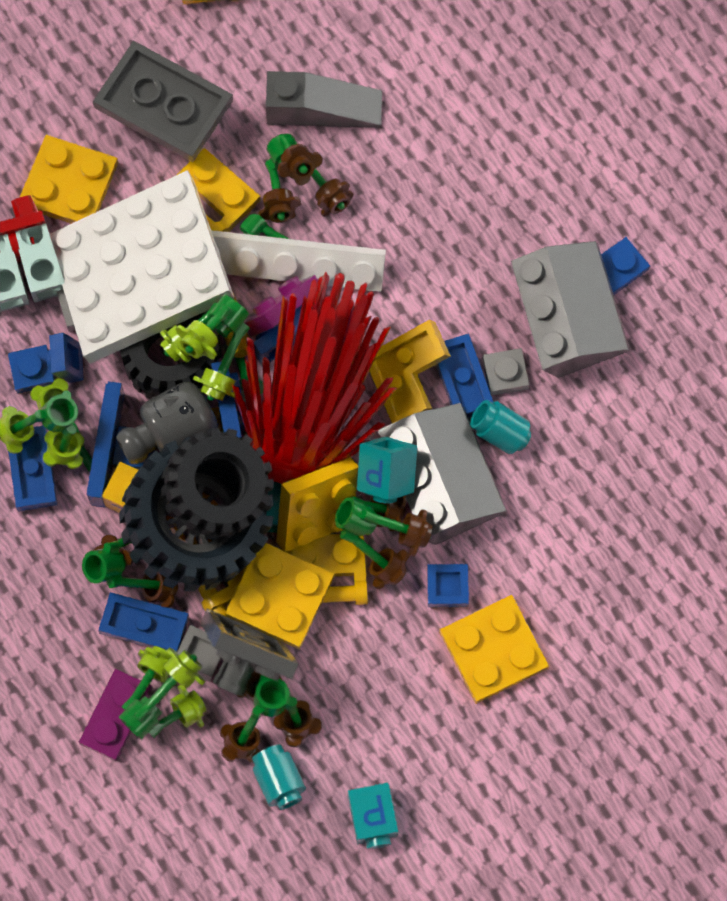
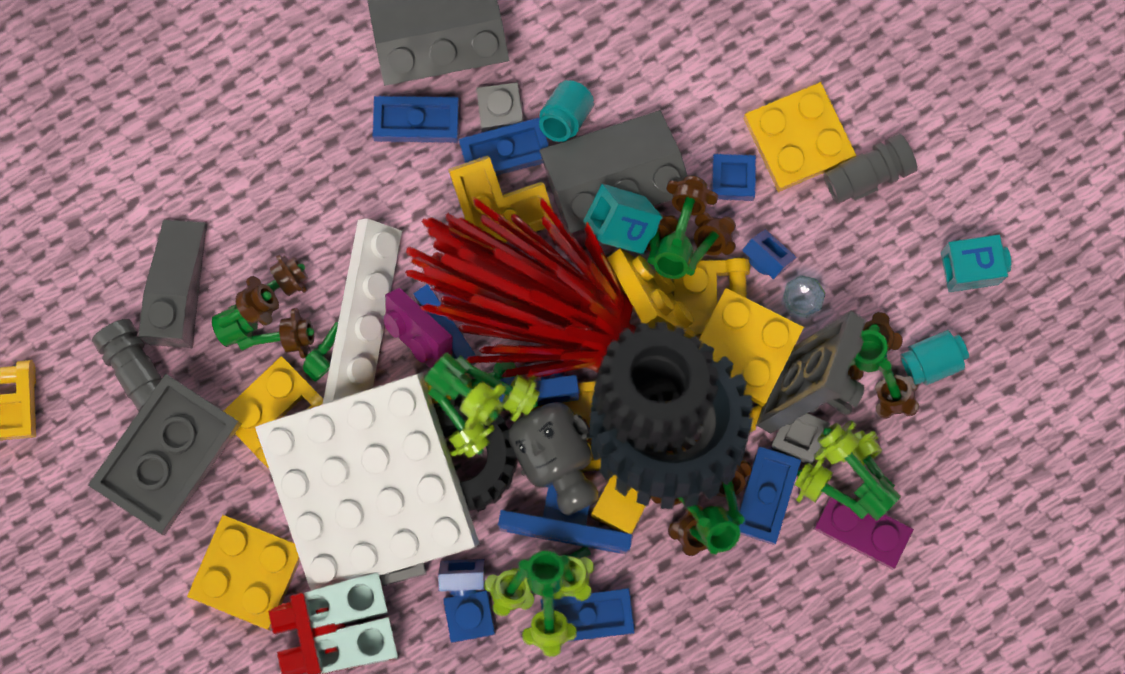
camera: 85 degrees left, 5 degrees up
(244, 74) = (131, 365): none -> dark grey axle
(333, 653) = (803, 297): none -> clear light blue tile
(373, 619) = (768, 254): none -> blue plate
(460, 711) = (866, 171): none -> dark grey axle
(487, 297) = (415, 119): none -> blue plate

